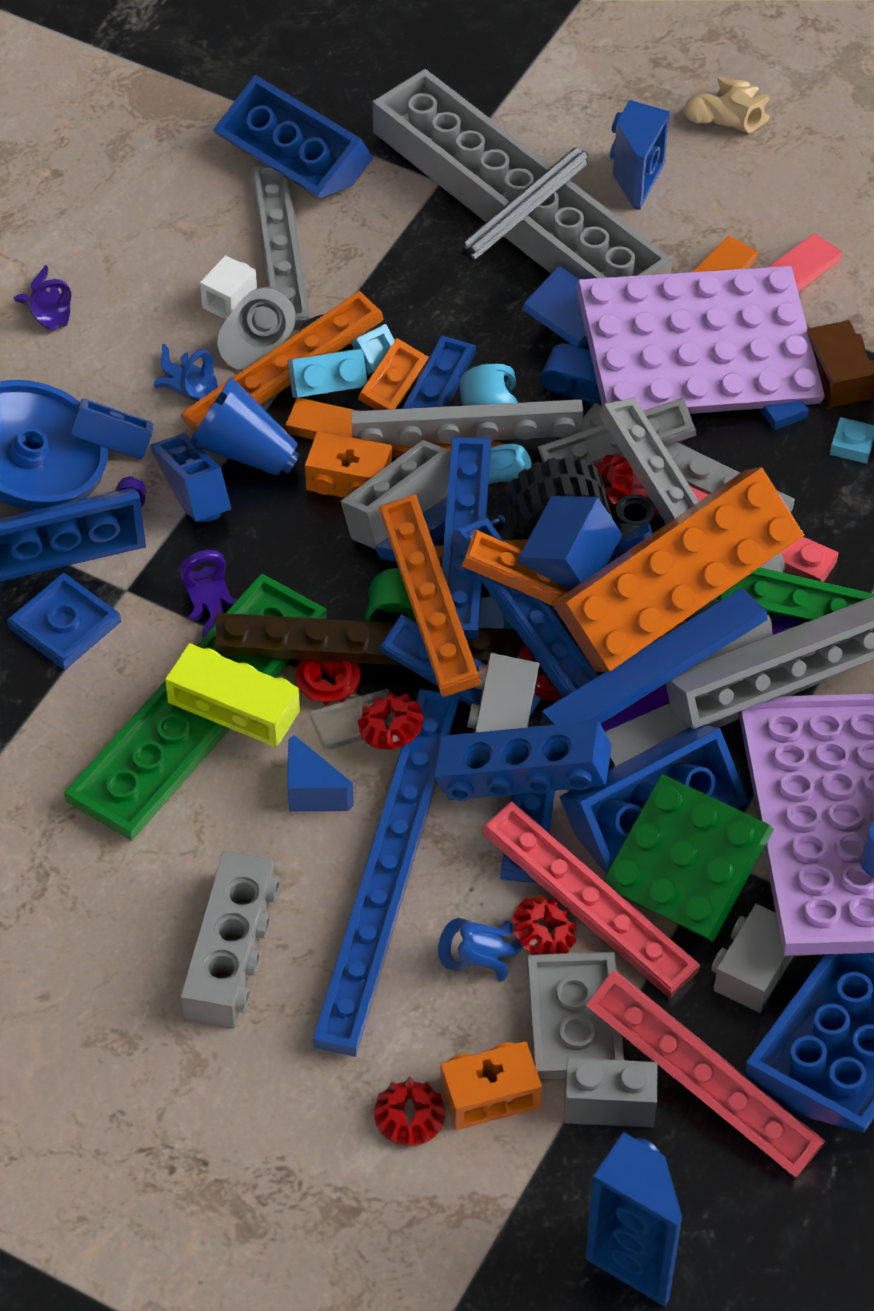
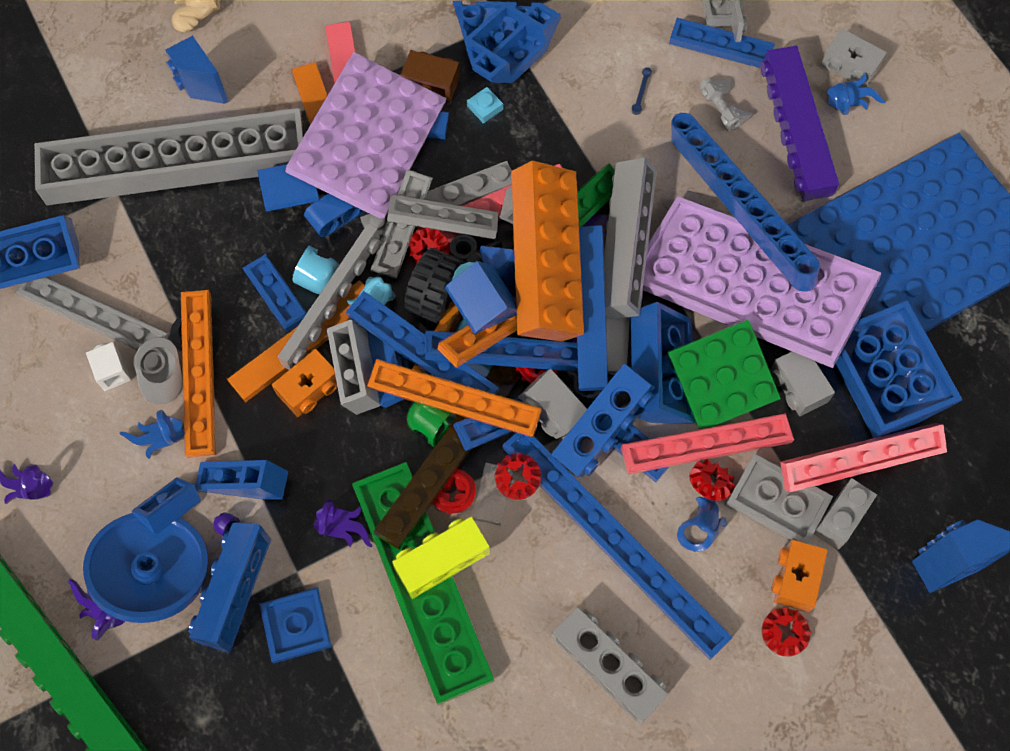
camera: 55 degrees left, 15 degrees up
(245, 432) = (237, 428): blue cone -> none
(314, 782) = (526, 547): blue slope -> none
(327, 373) = (225, 350): medium azure plate -> none
(374, 346) = (226, 310): medium azure plate -> none
(393, 377) = (257, 315): orange plate -> none
(524, 203) = (195, 158): axle -> none

